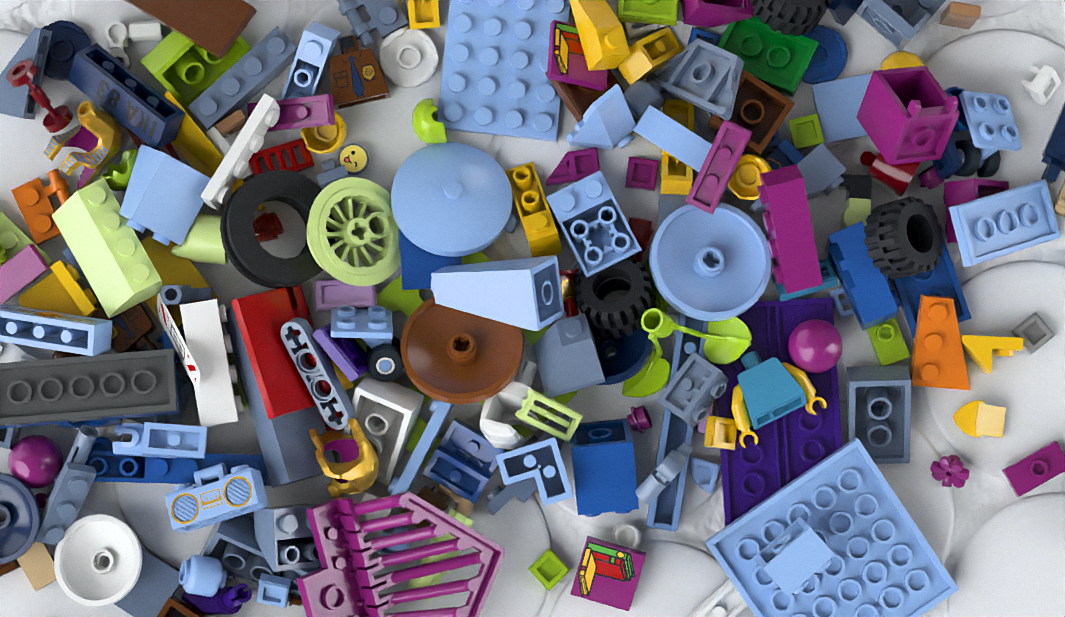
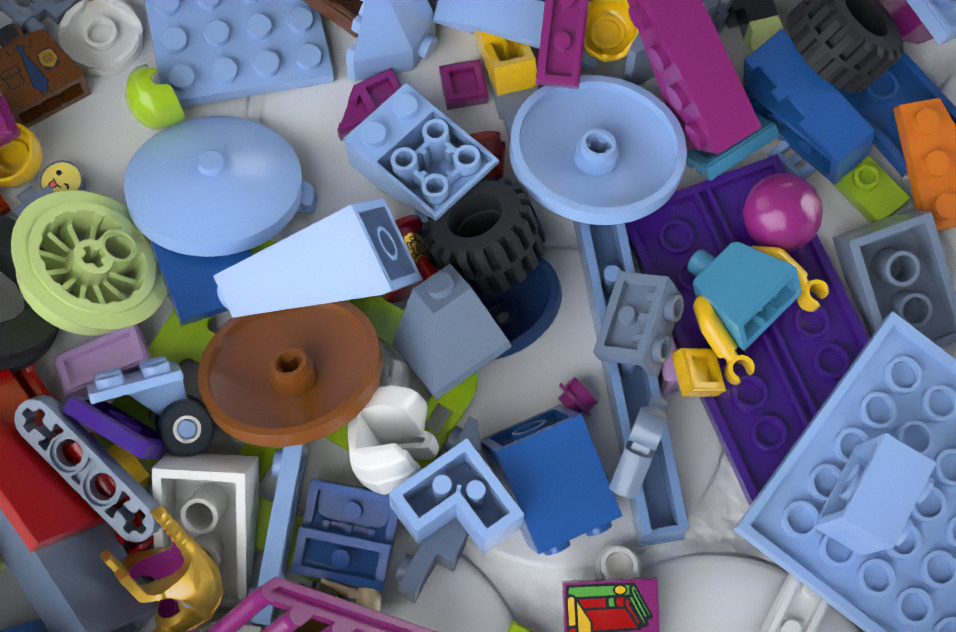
camera: 20 degrees left, 15 degrees down
(528, 405) = (412, 411): yellowish green tile -> none
(533, 211) = (331, 166): yellow slope -> none
(704, 473) = (695, 444): light blue tile -> none
(723, 345) = (655, 248): lime plant -> none

